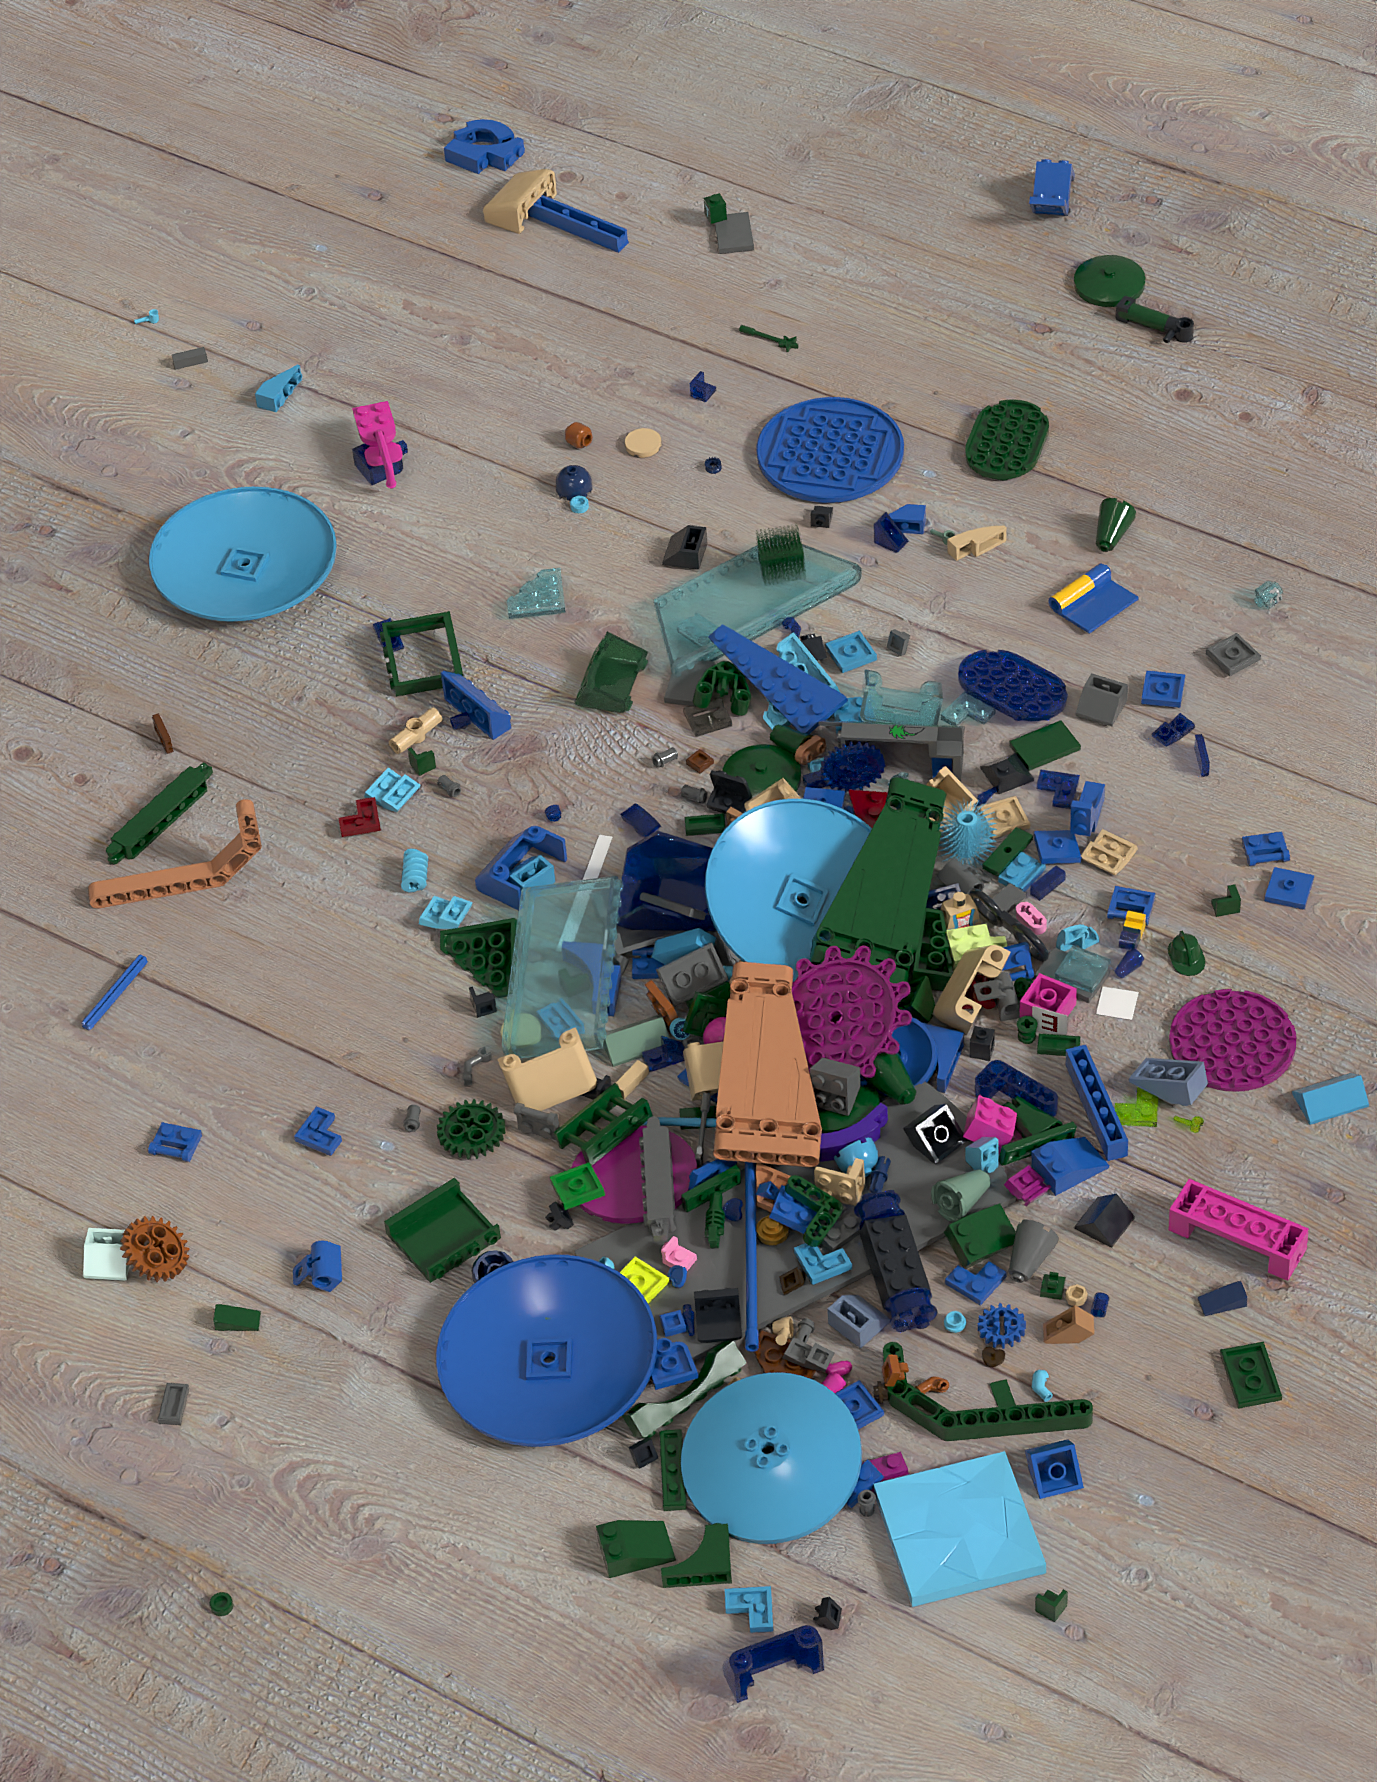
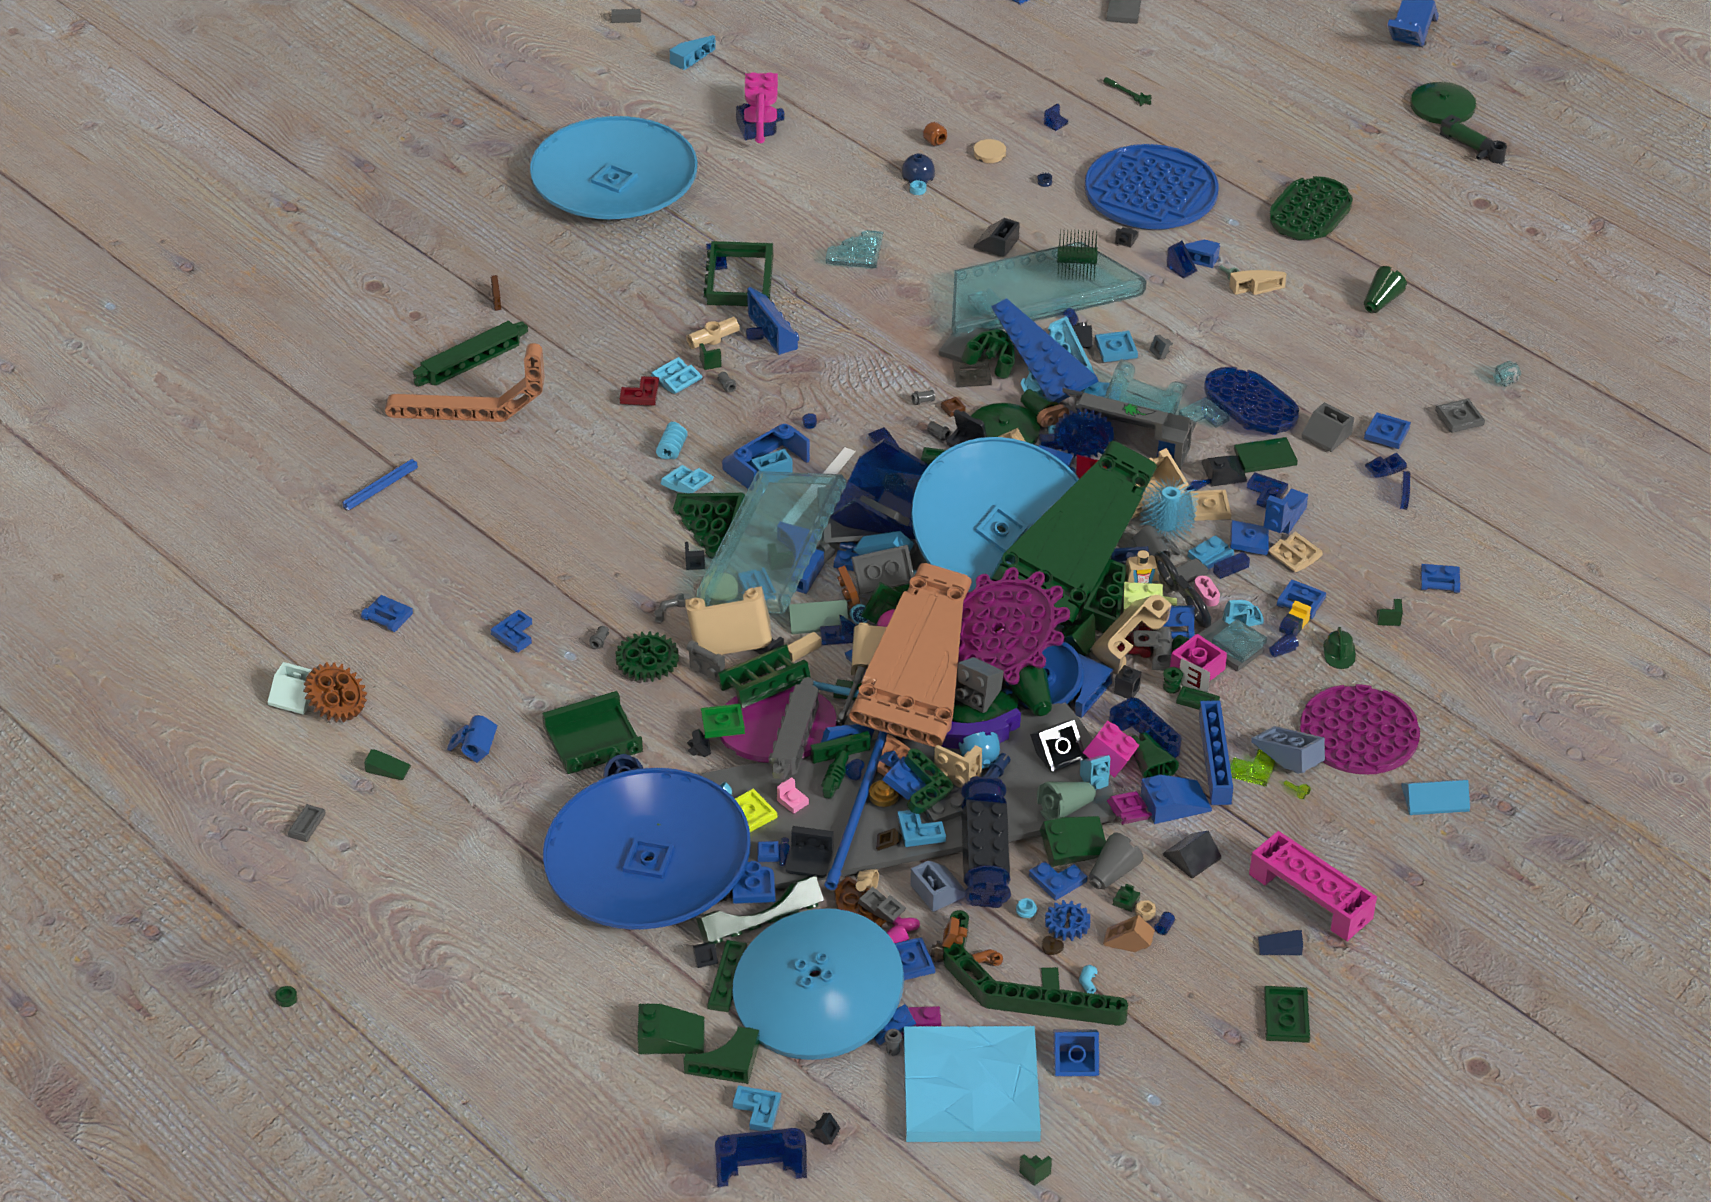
camera: 10 degrees right, 5 degrees down
(611, 675) = (898, 322): clear green windscreen -> none
(677, 1275) = (785, 812): blue piece -> none
(805, 1328) = (888, 883): dark grey pin -> none
(1007, 851) = (1203, 532): dark green tile -> none
(1023, 1148) = (1134, 774): dark green tile -> none
(1092, 599) = (1345, 346): blue door -> none
(1117, 1003) = (1263, 676): white sticker -> none
(1289, 888) = (1452, 614): blue plate -> none

